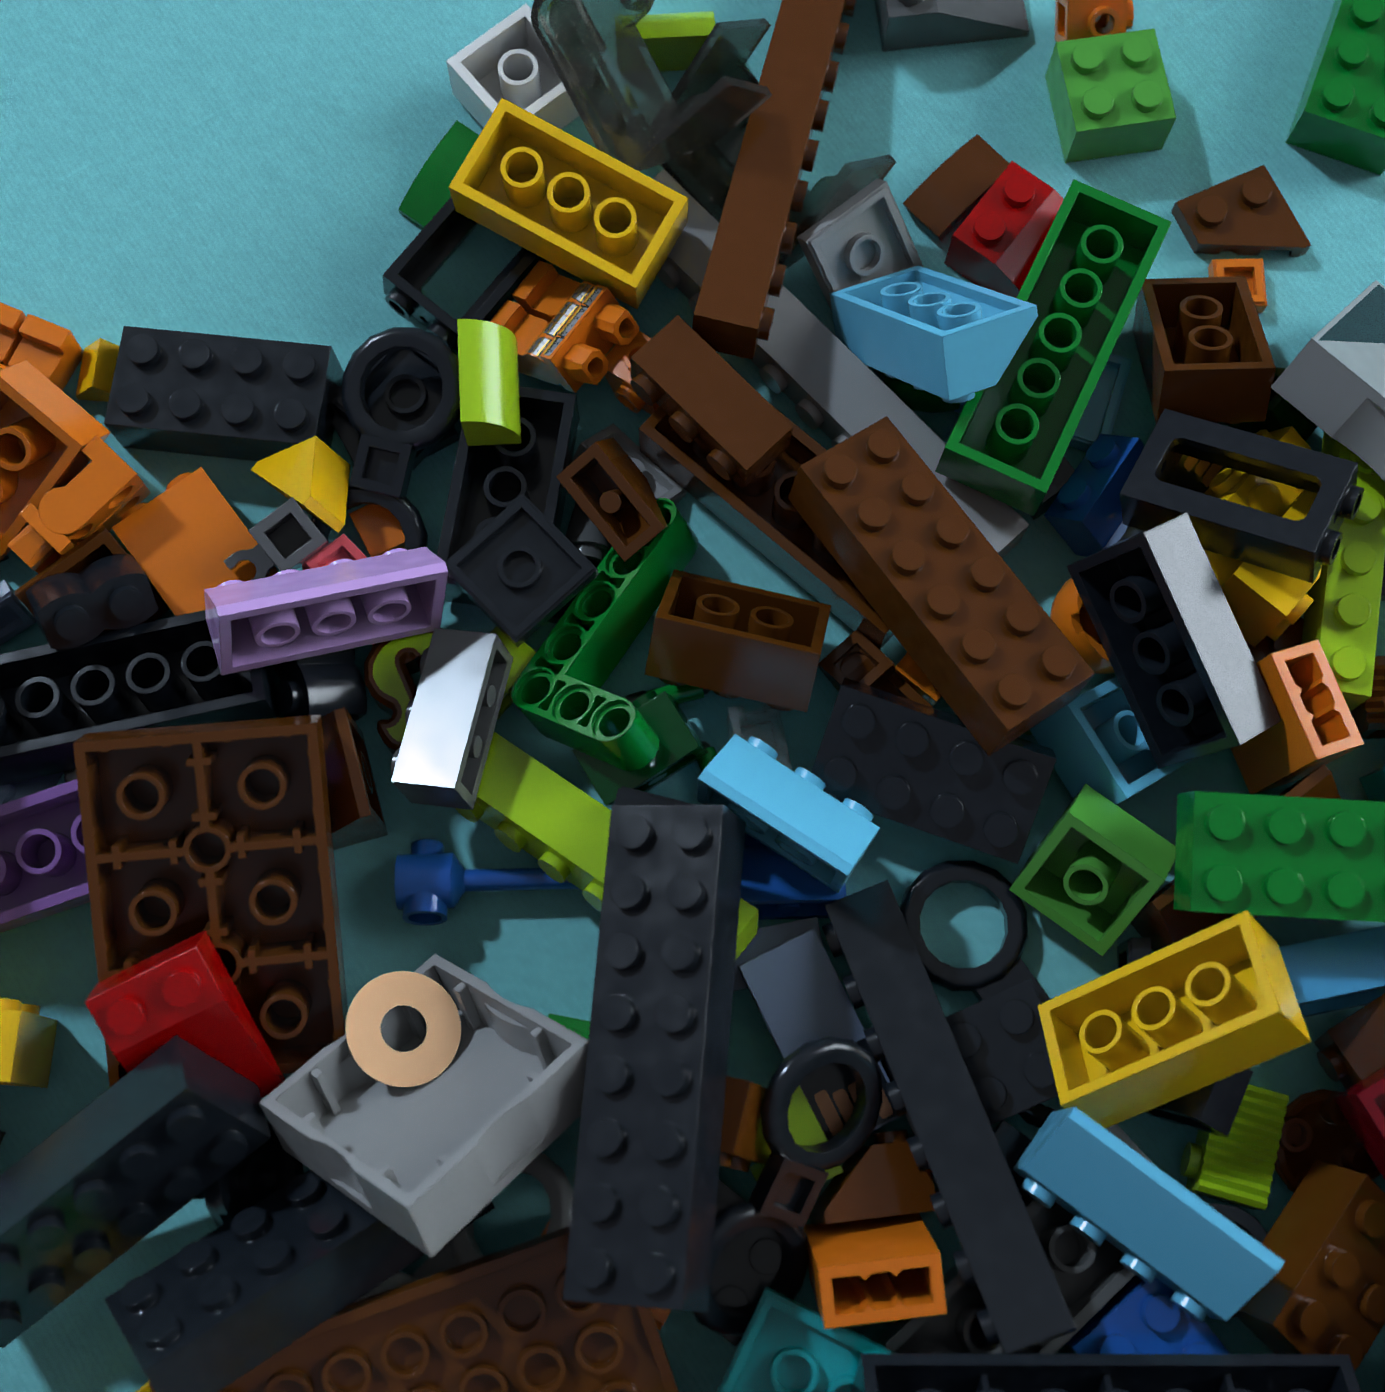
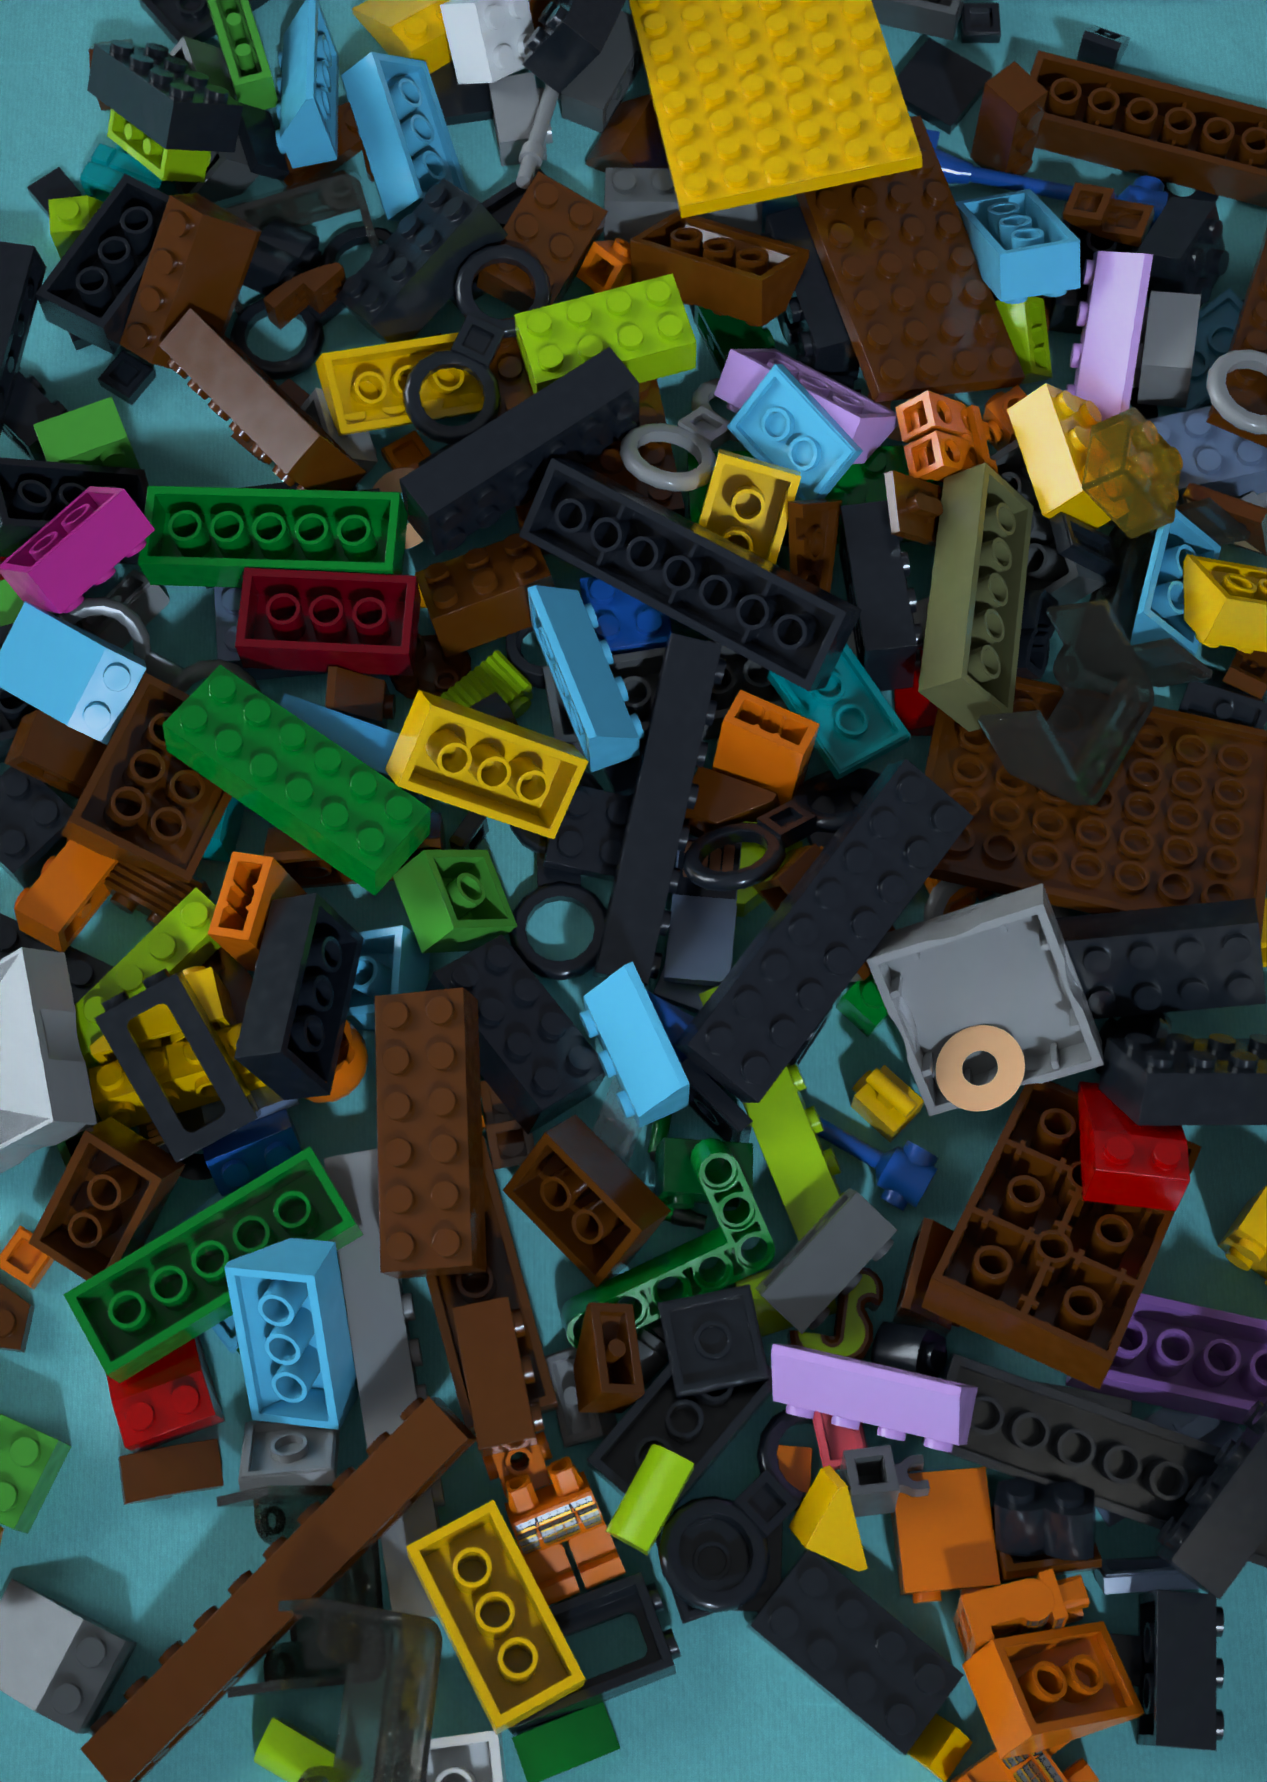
camera: 145 degrees left, 5 degrees down
(493, 947) = (885, 1101): none -> yellow brick

